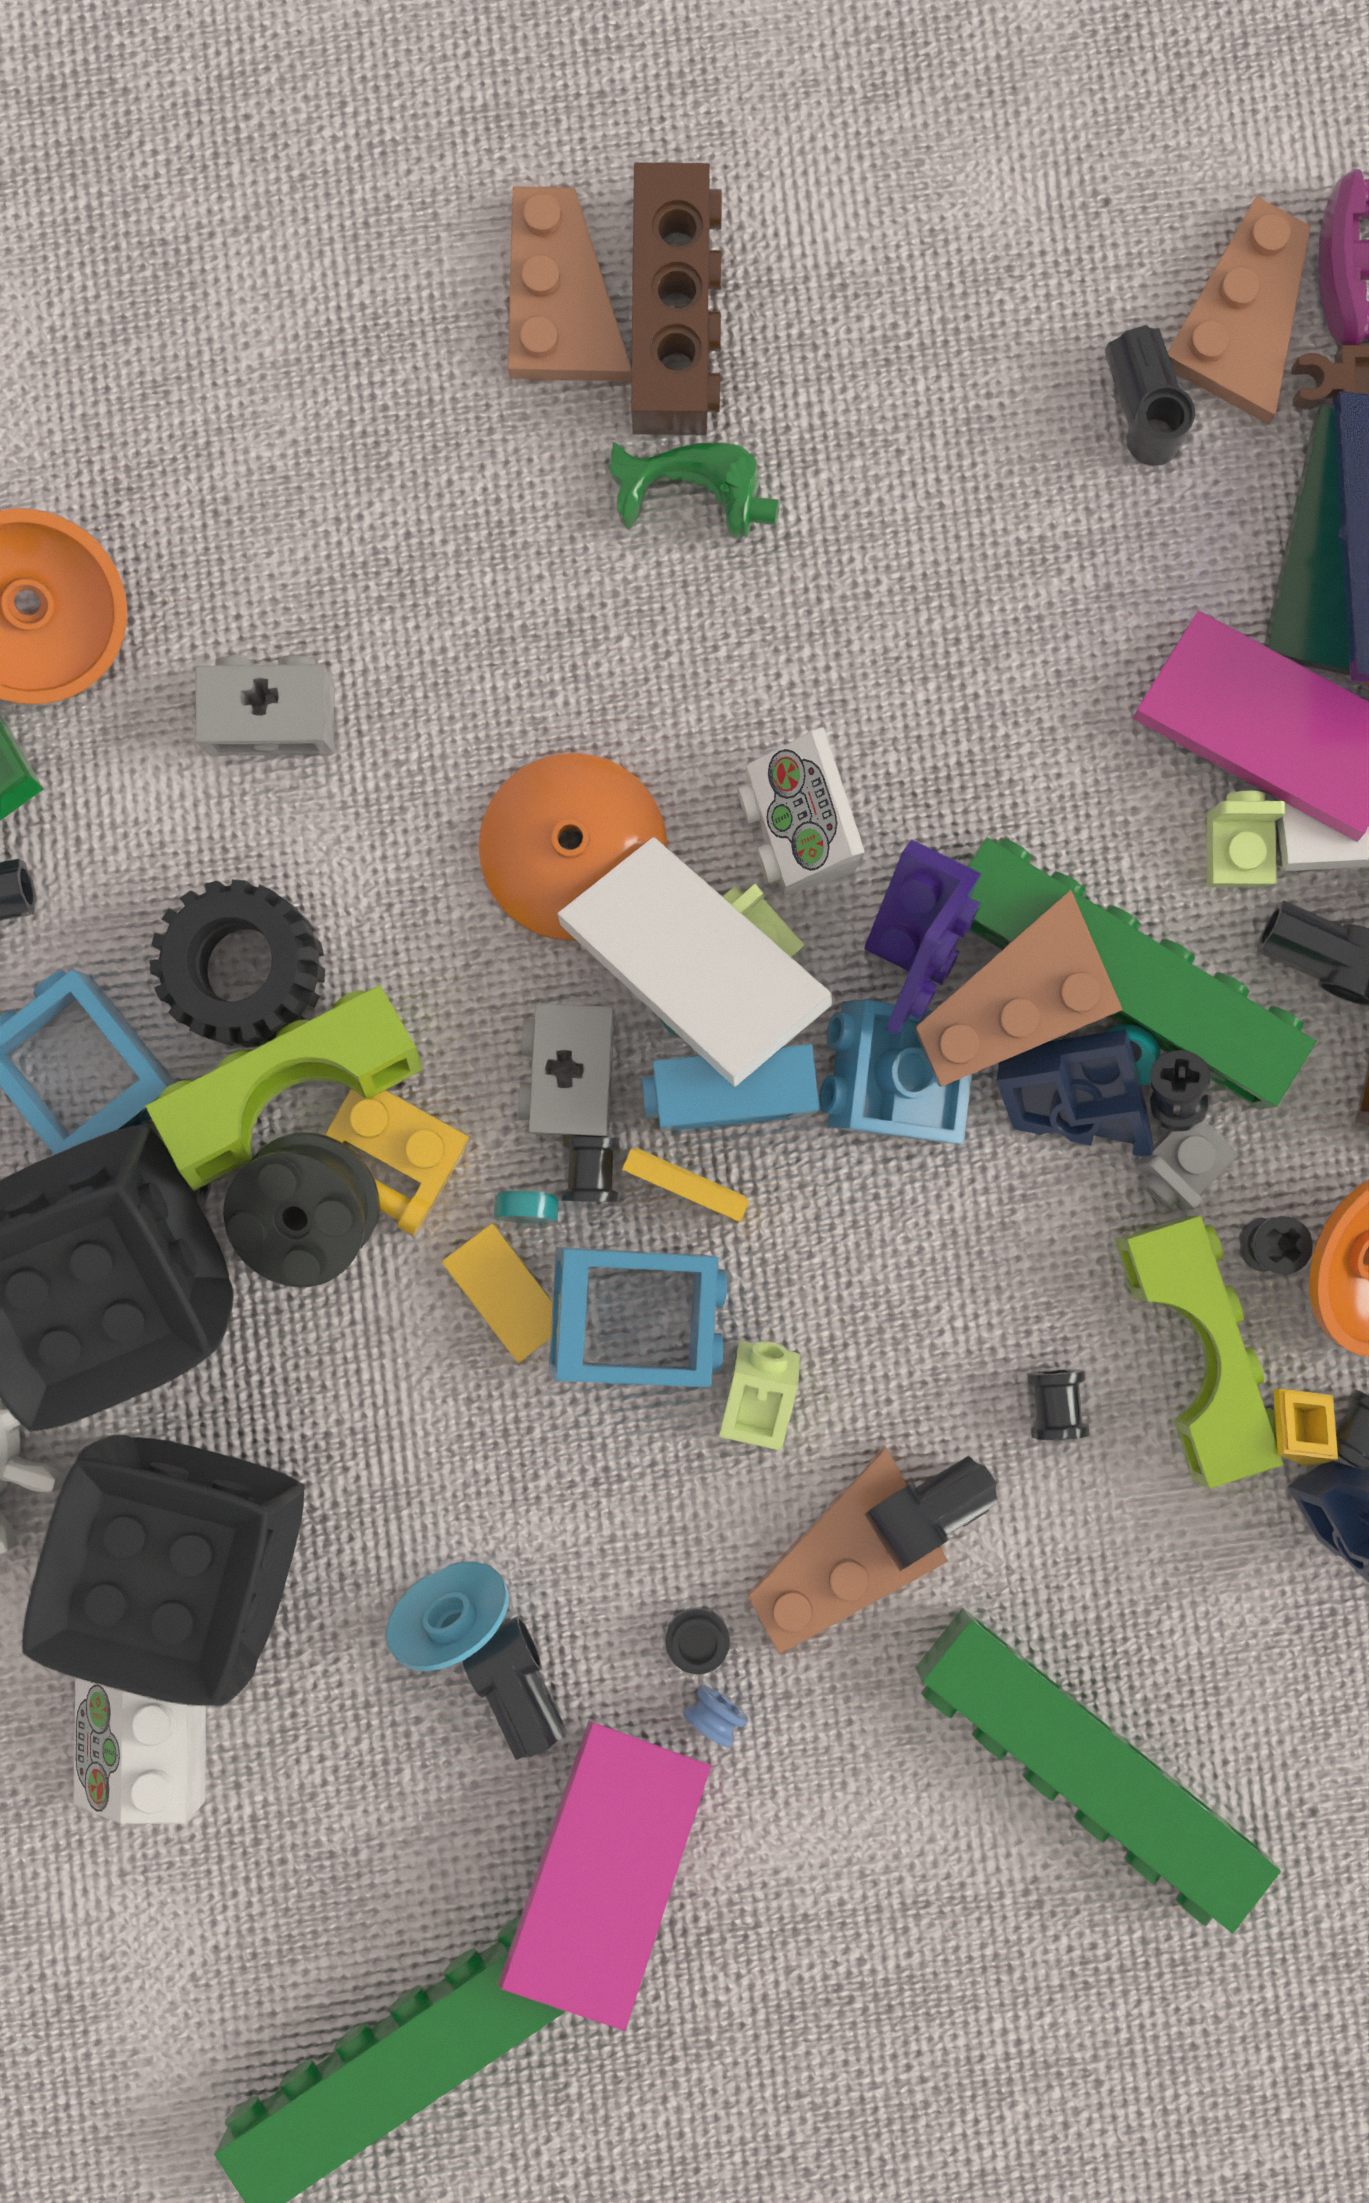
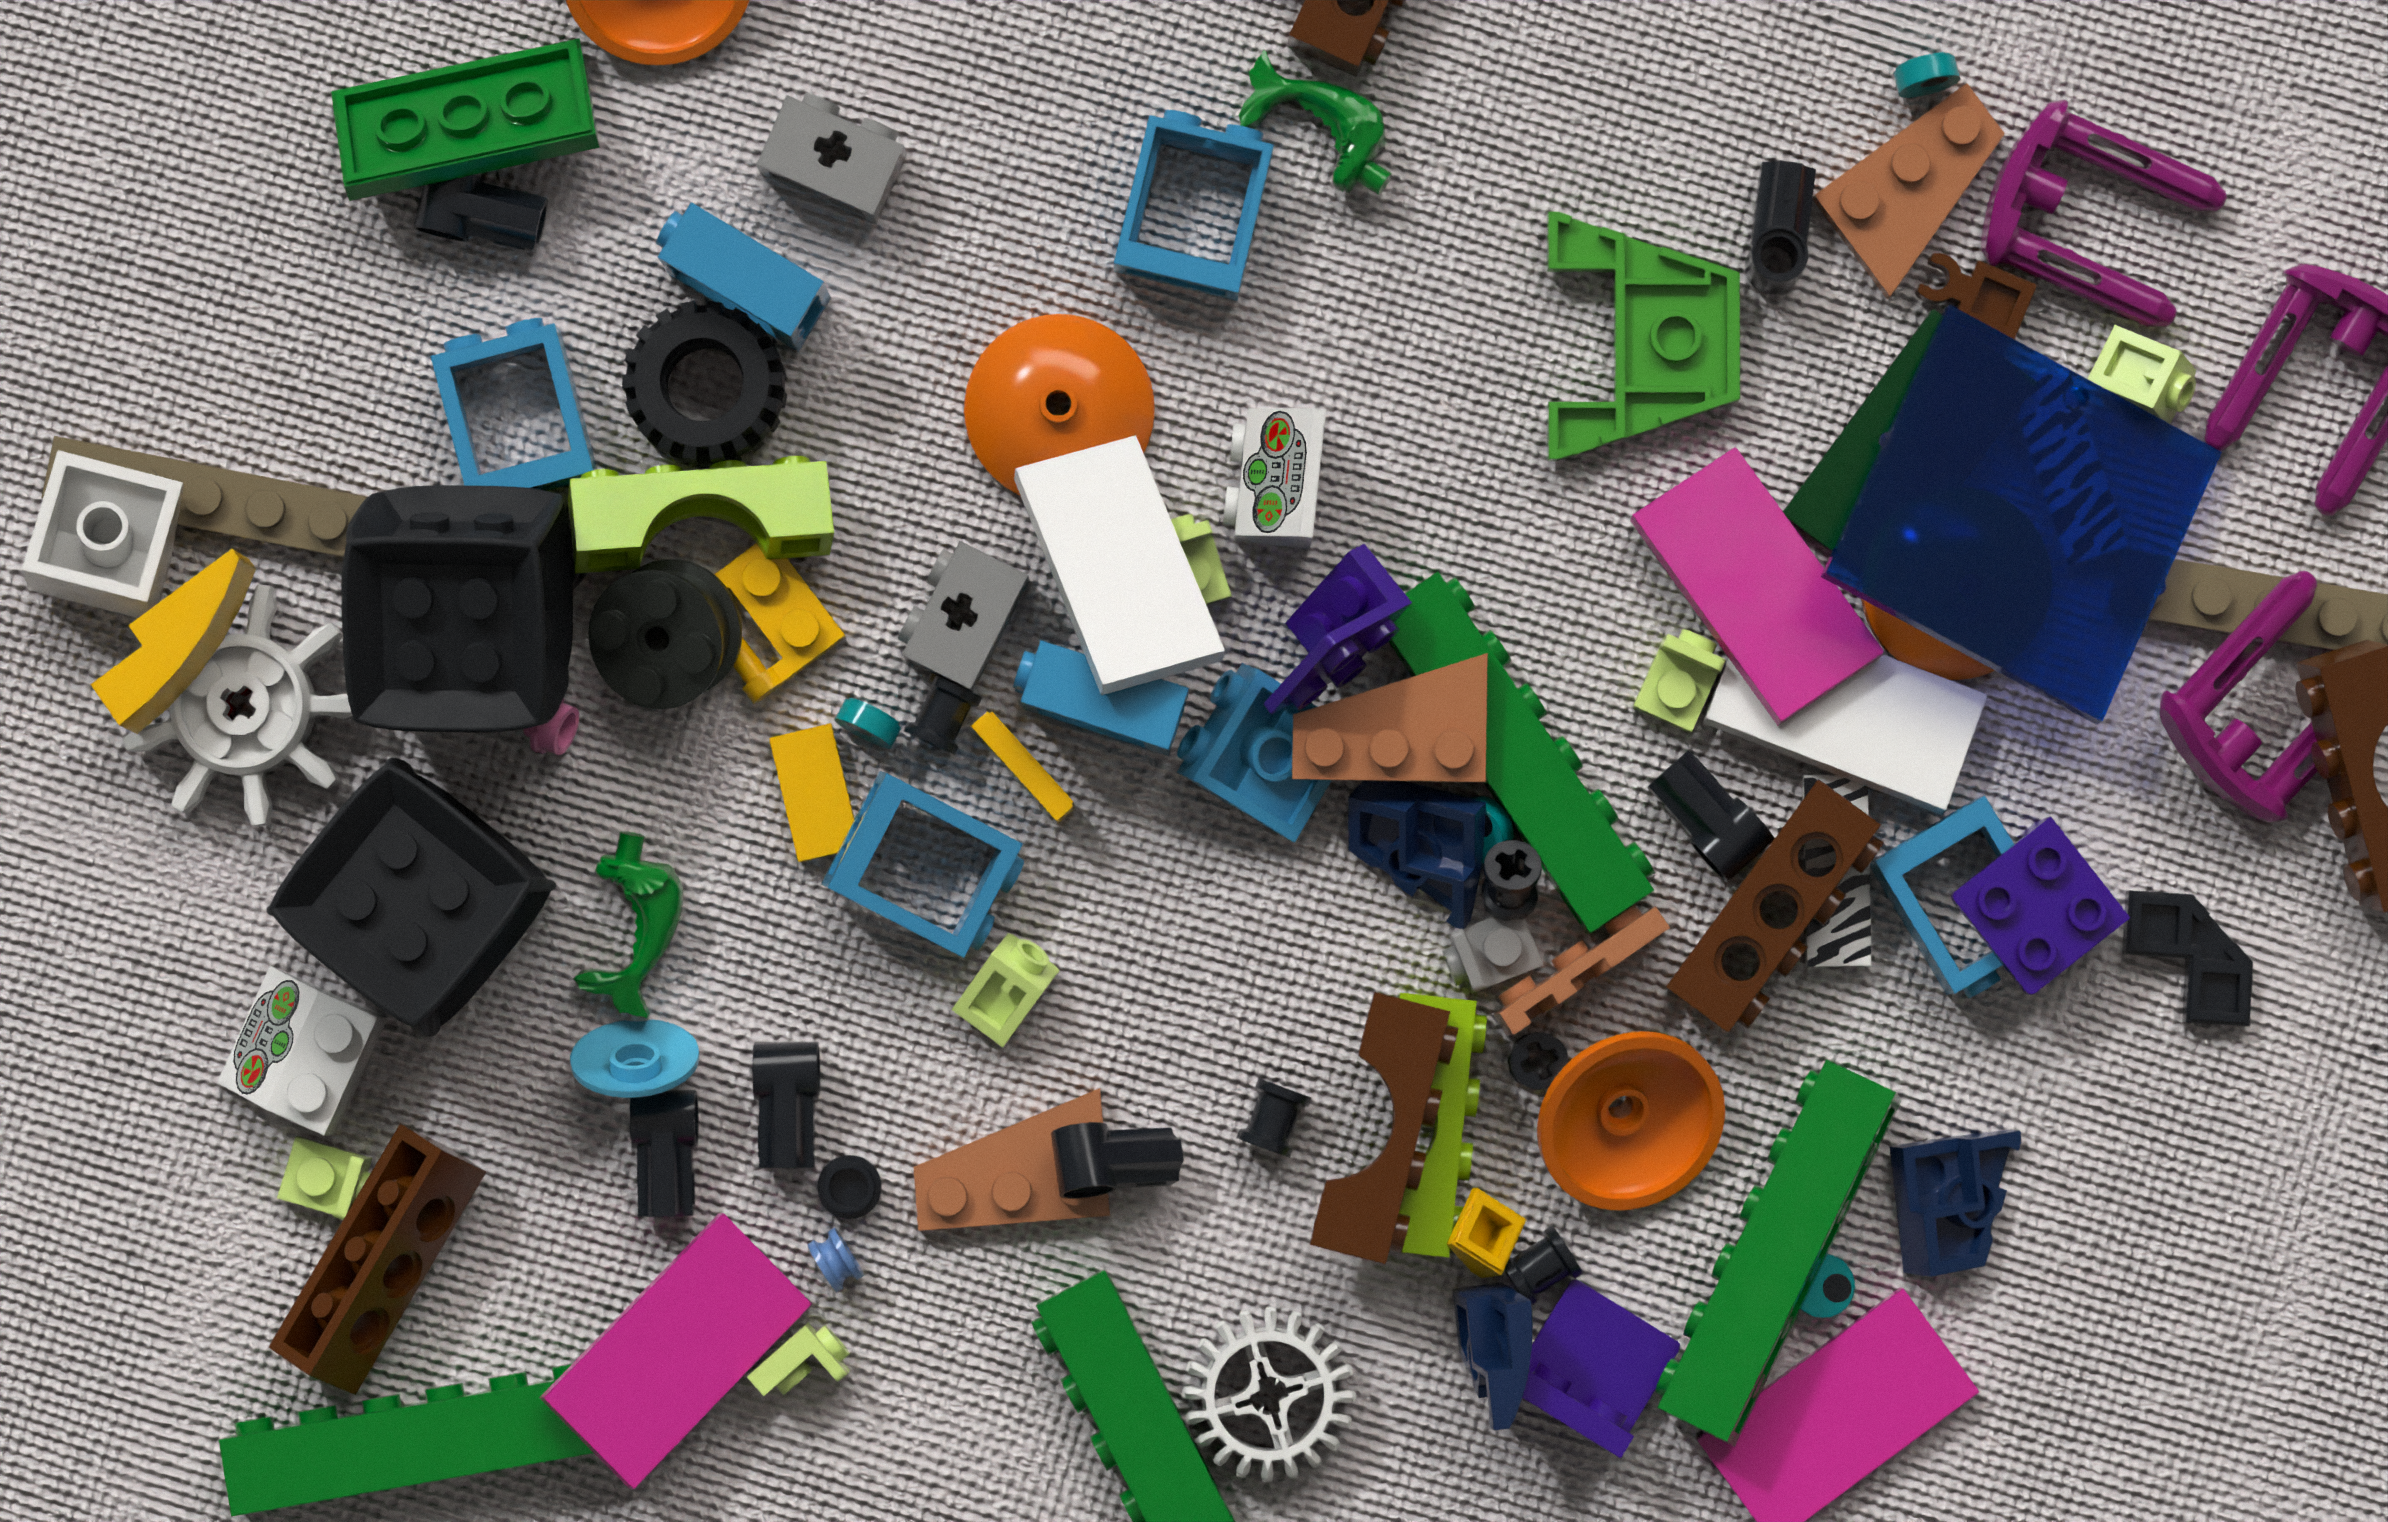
camera: 20 degrees right, 0 degrees up
(215, 1850) = (323, 1177): none -> yellowish green bracket
(222, 843) = (742, 274): none -> dark azure window
(242, 1340) = (557, 733): none -> bright pink plate
(289, 1914) = (377, 1259): none -> reddish brown brick
(405, 1458) = (658, 903): none -> green animal
(599, 1576) = (786, 1086): none -> black piece
(622, 670) = (1175, 268): none -> dark azure window
(713, 1831) = (788, 1364): none -> yellowish green bracket
(1094, 536) = (1670, 336): none -> bright green wing
(1189, 1649) = (1284, 1447): none -> white gear
(1191, 1457) = (1362, 1210): none -> reddish brown arch
(1218, 203) = (1926, 75): none -> teal tile
(1269, 1163) = (1577, 966): none -> nougat wing

